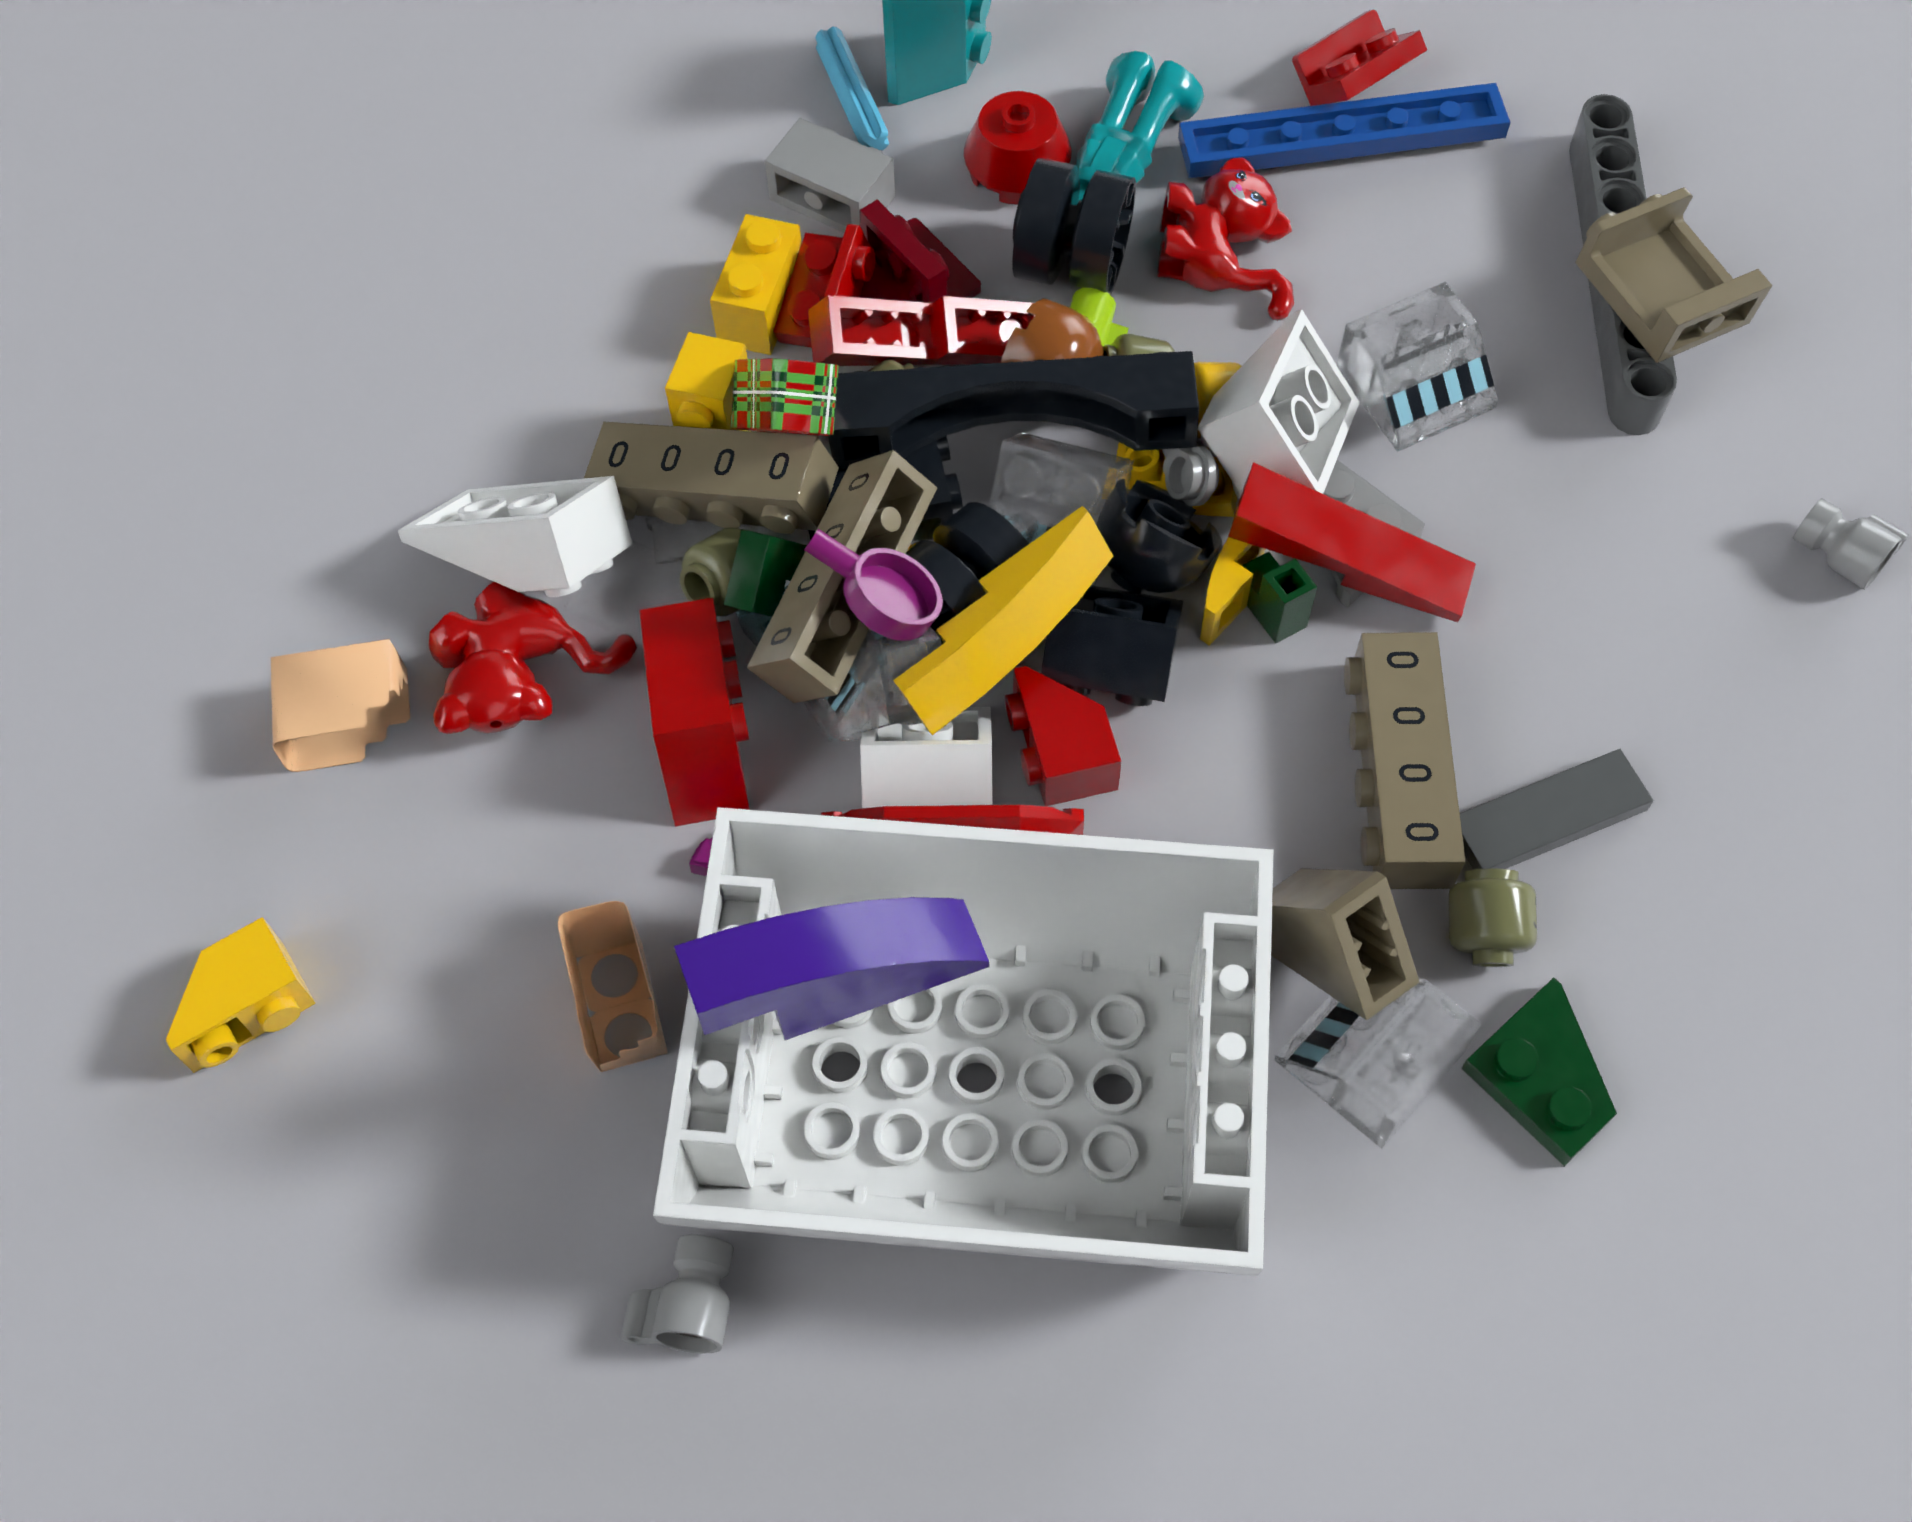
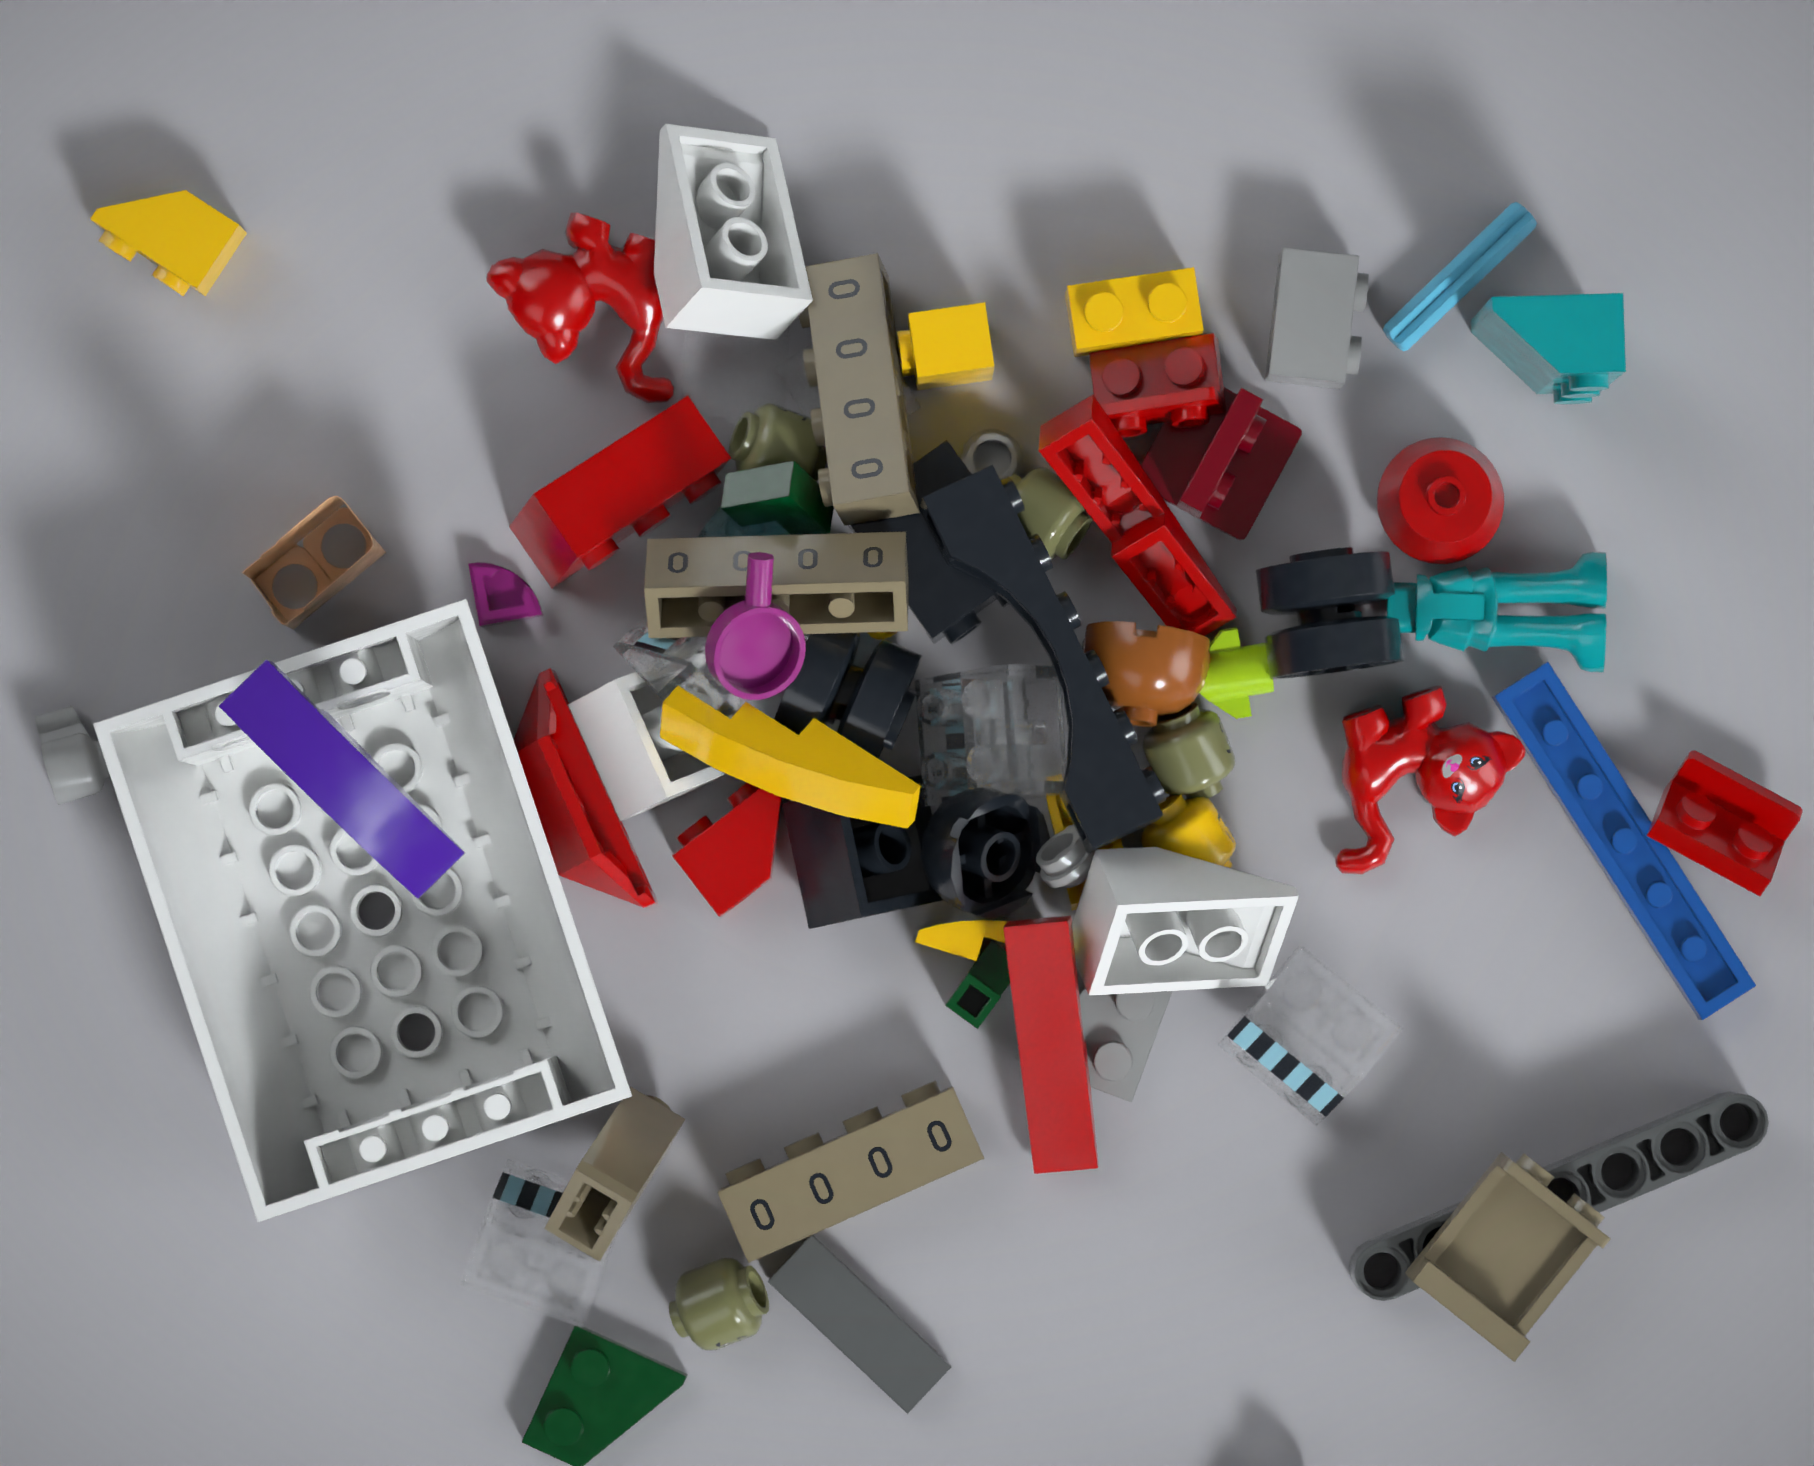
camera: 65 degrees right, 25 degrees up
(336, 703) = (481, 155): light nougat piece -> none
(784, 396) = (928, 470): piece -> none

